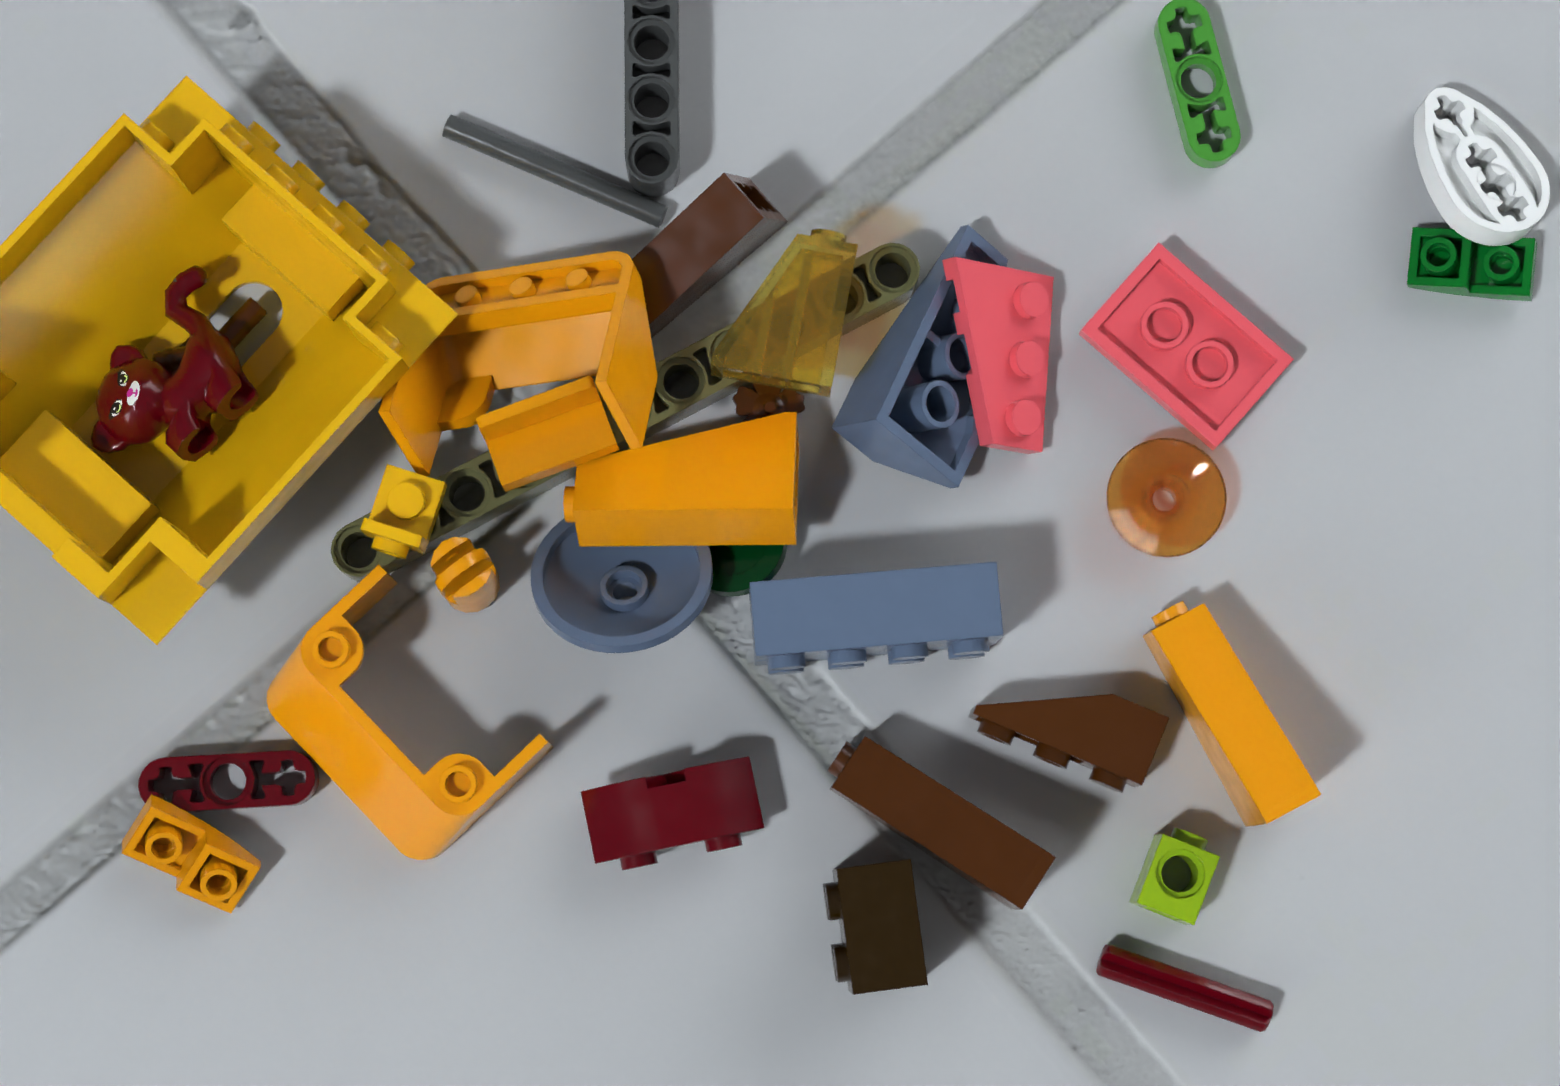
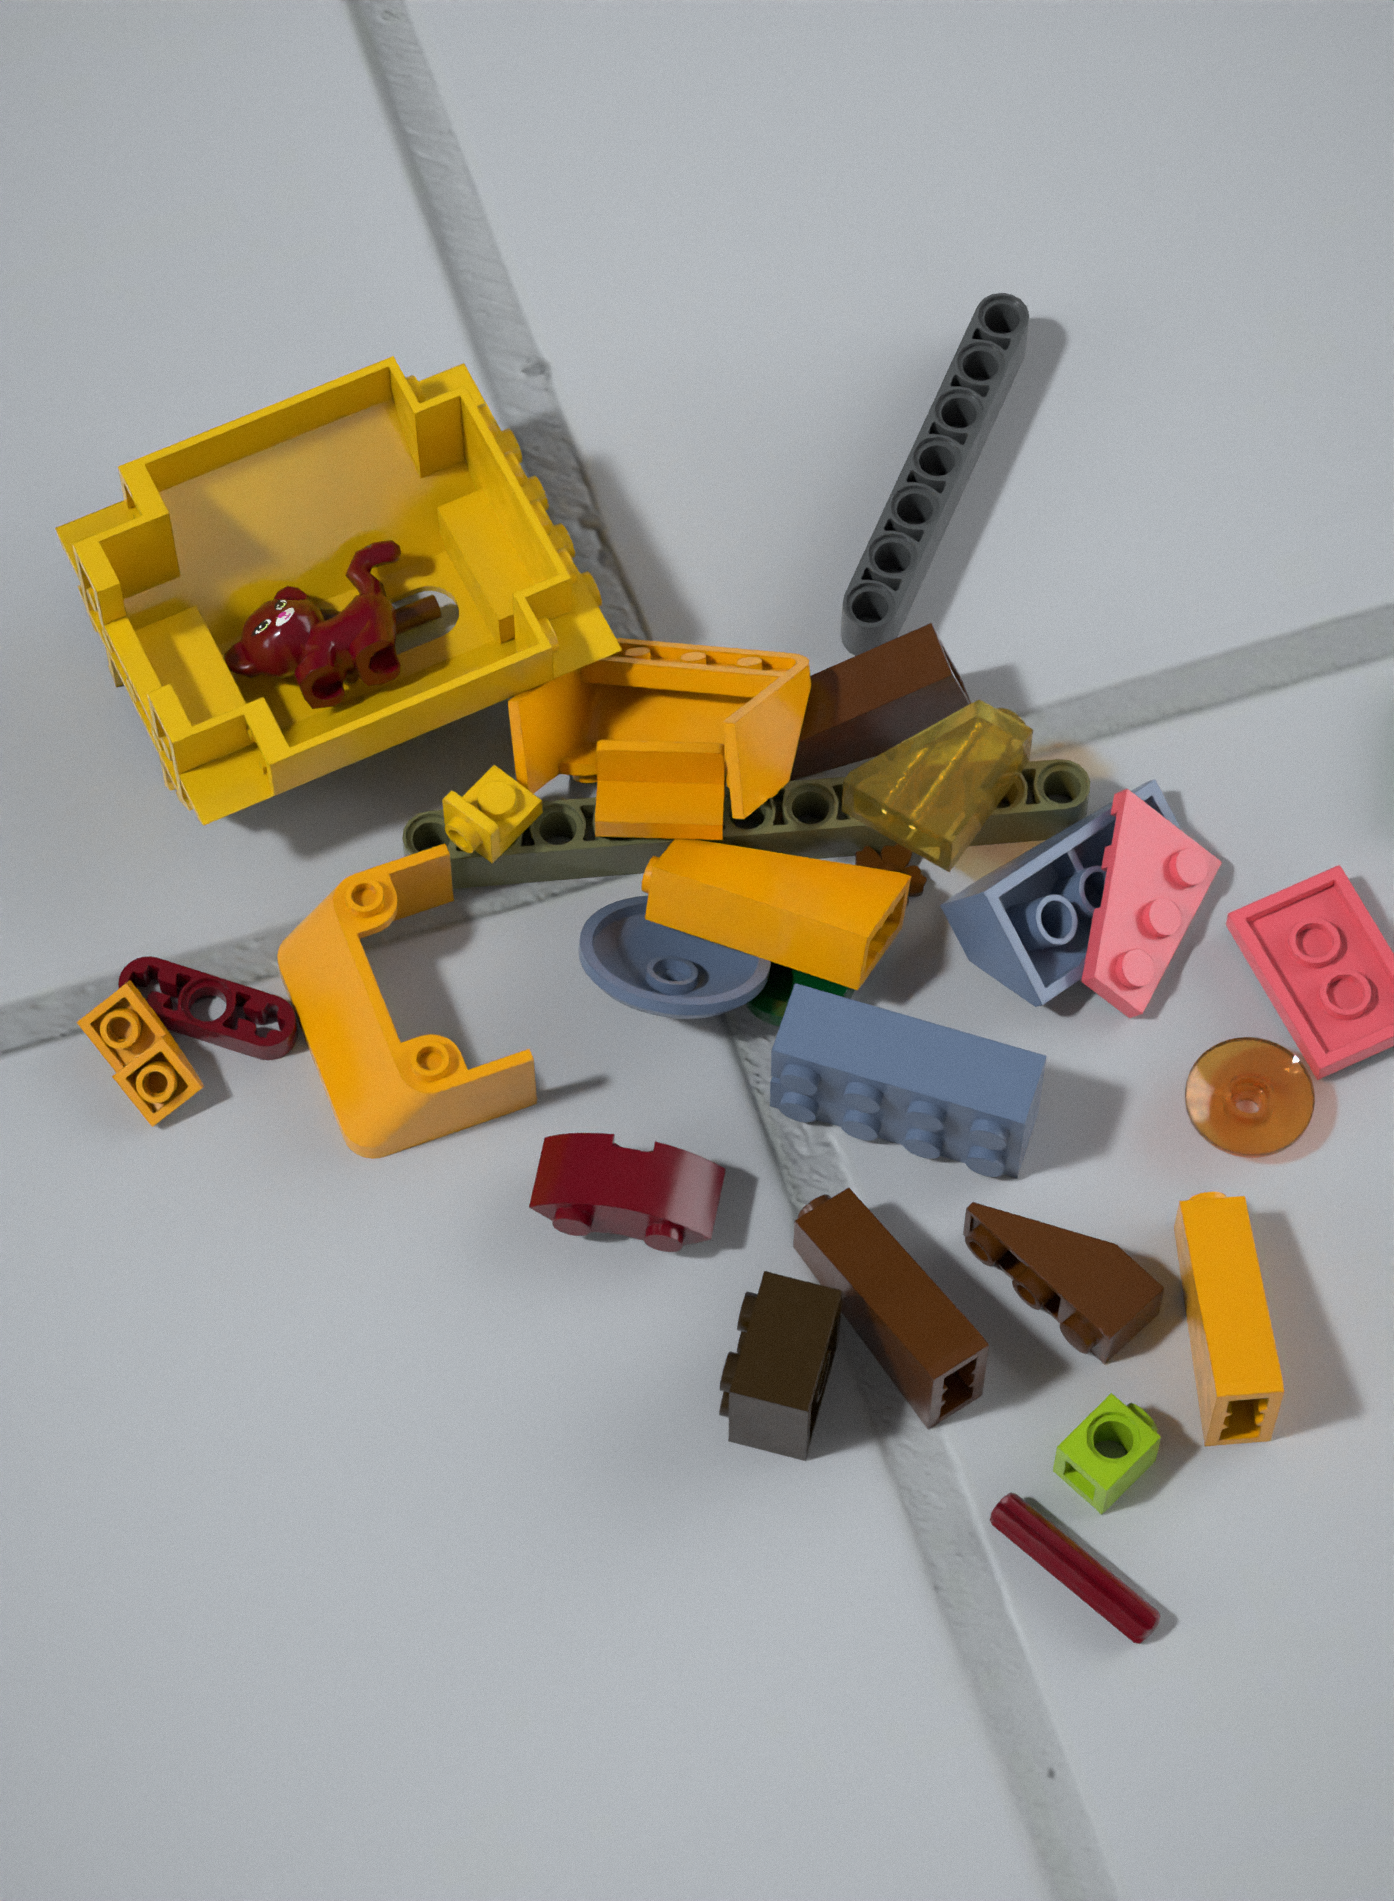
camera: 30 degrees right, 20 degrees down
(465, 575) = (522, 899): light orange arm -> none
(554, 171) = (765, 590): dark grey bar -> none

